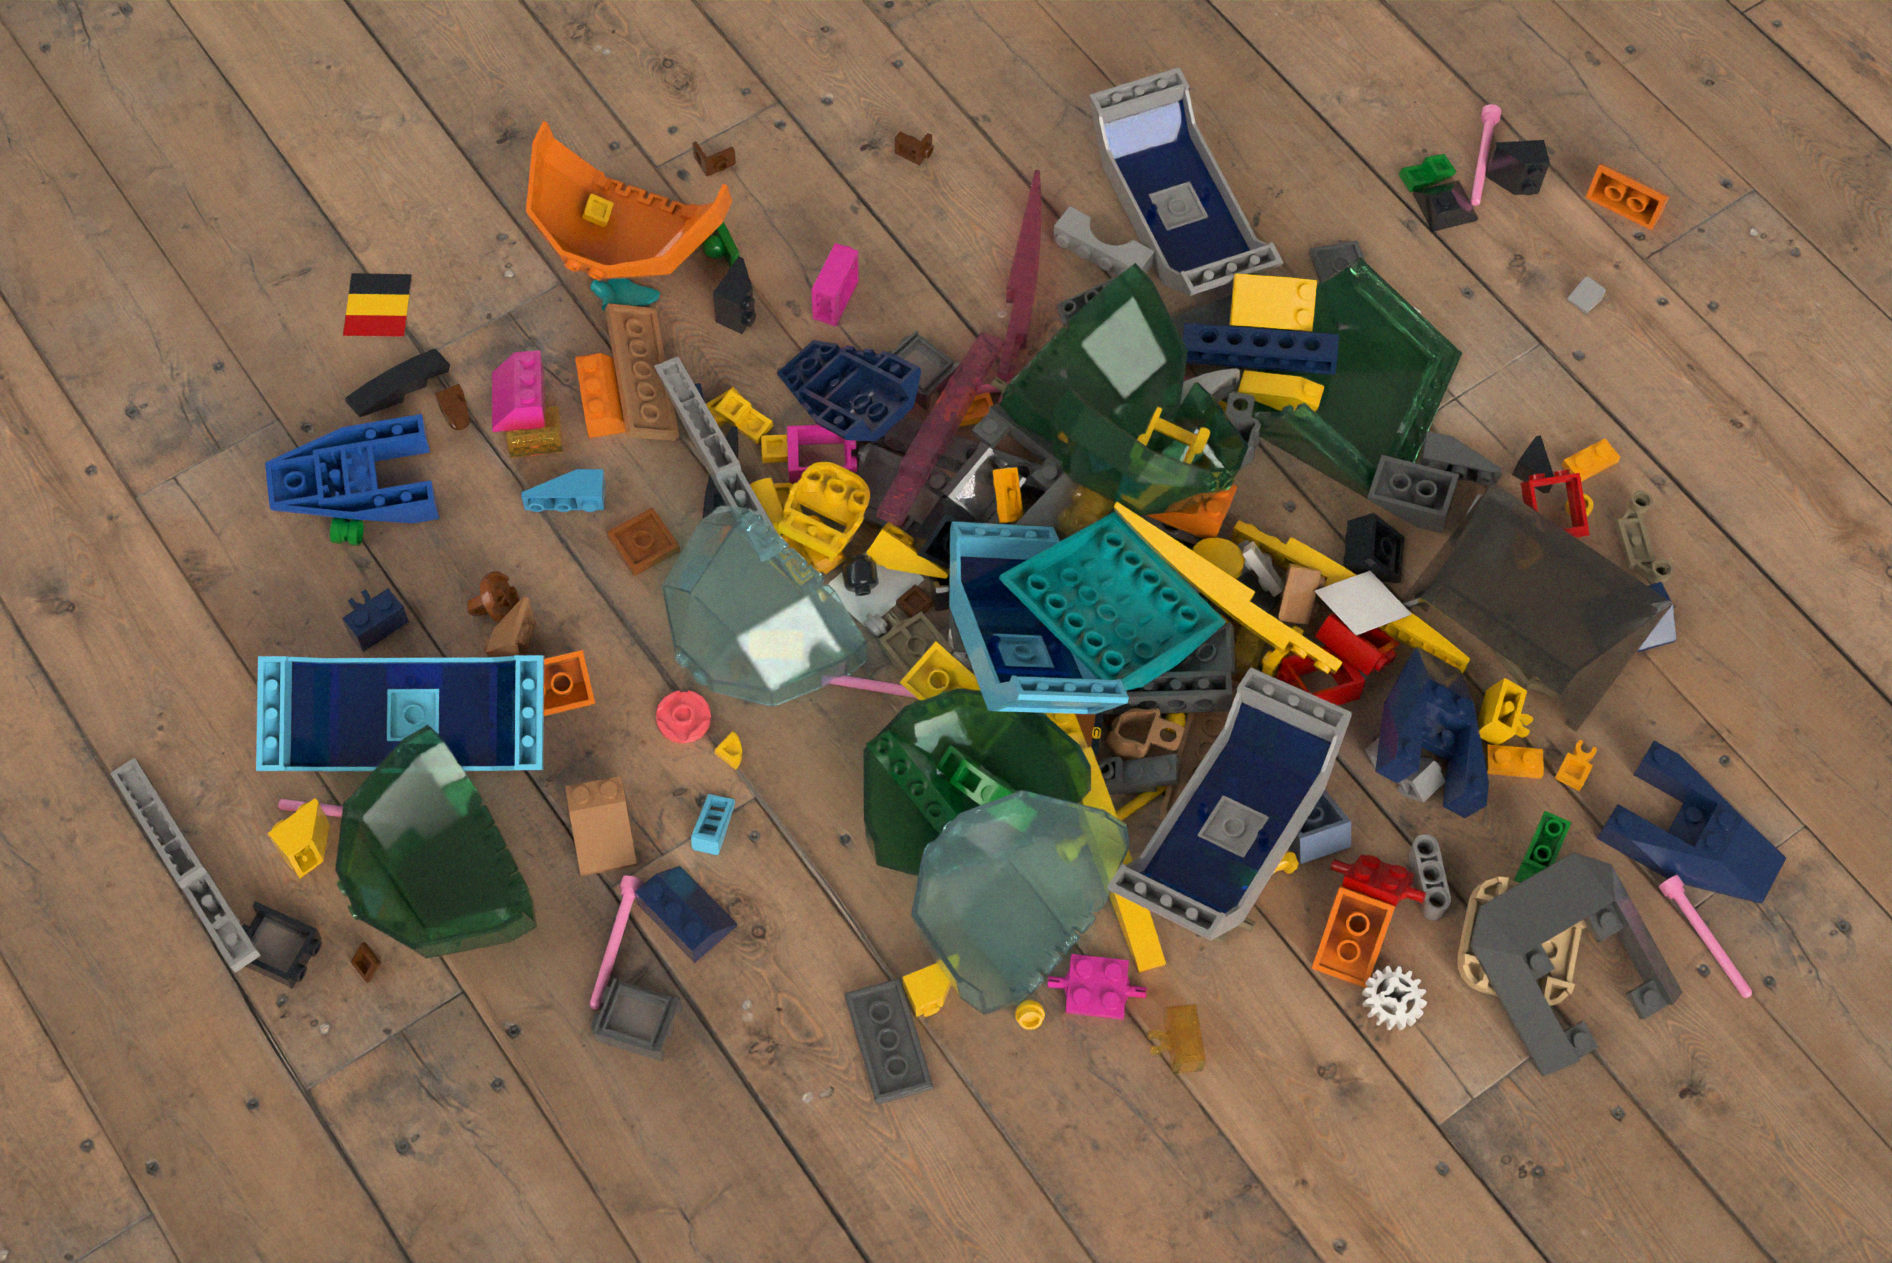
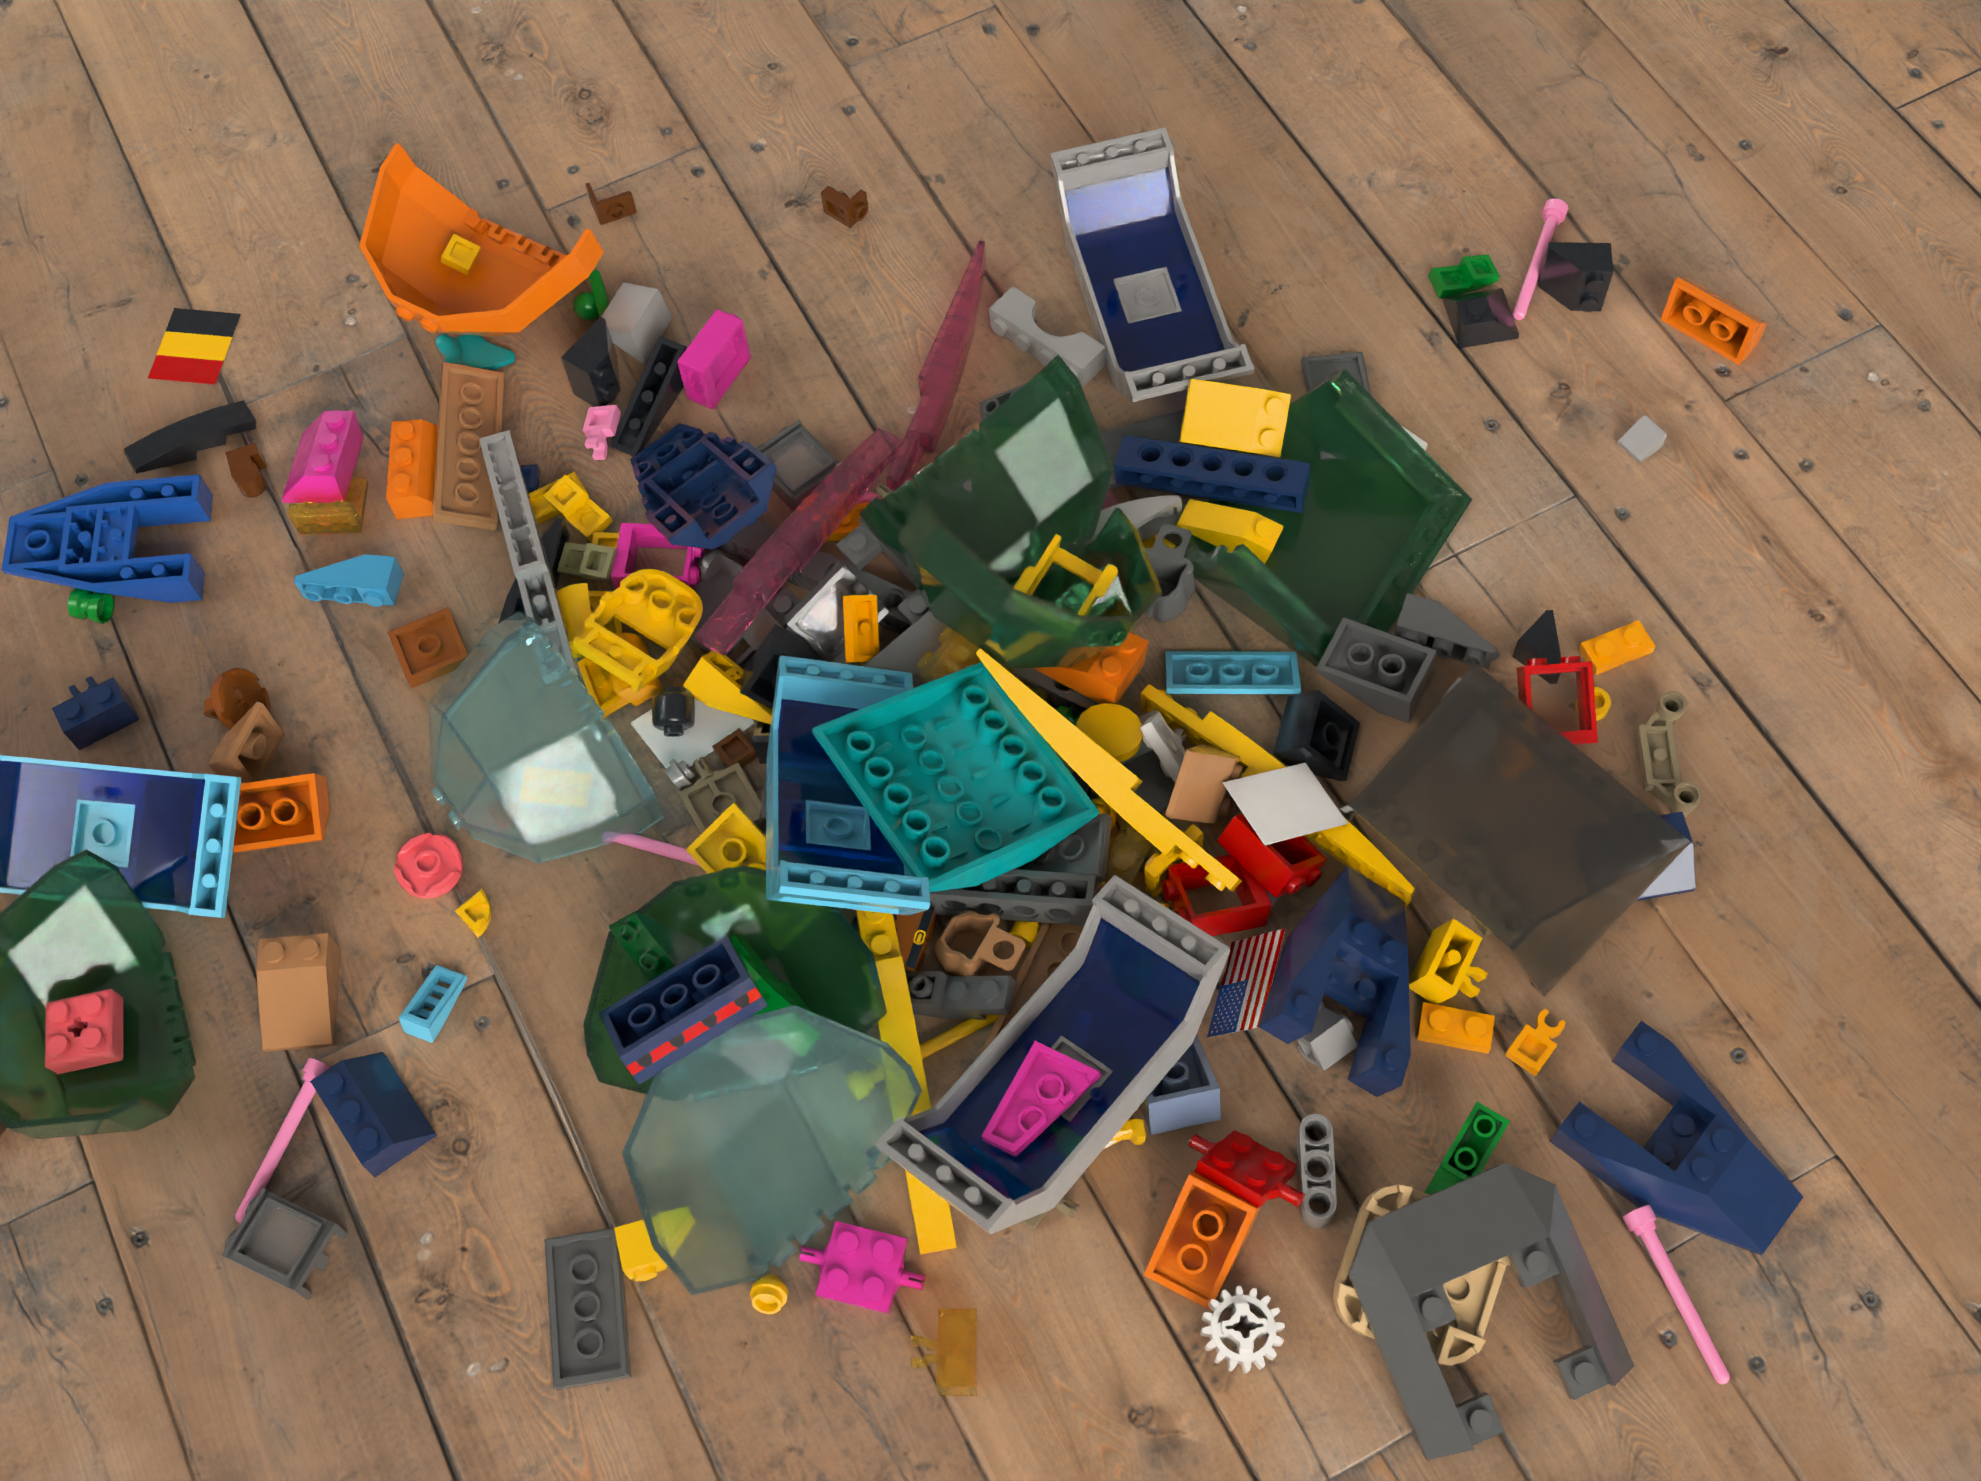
camera: 15 degrees right, 0 degrees up
(448, 880) = (84, 1031): none -> coral brick
(746, 346) = (598, 425): none -> bright pink plate
(762, 253) = (637, 319): none -> light grey slope
(764, 460) = (587, 561): none -> olive slope
(787, 319) = (651, 399): none -> black slope
(937, 801) = (682, 1010): none -> dark blue brick
(1217, 841) = (1037, 1097): none -> dark pink wing
(1299, 505) = (1231, 672): none -> medium azure slope
(1360, 744) = (1246, 983): none -> sticker

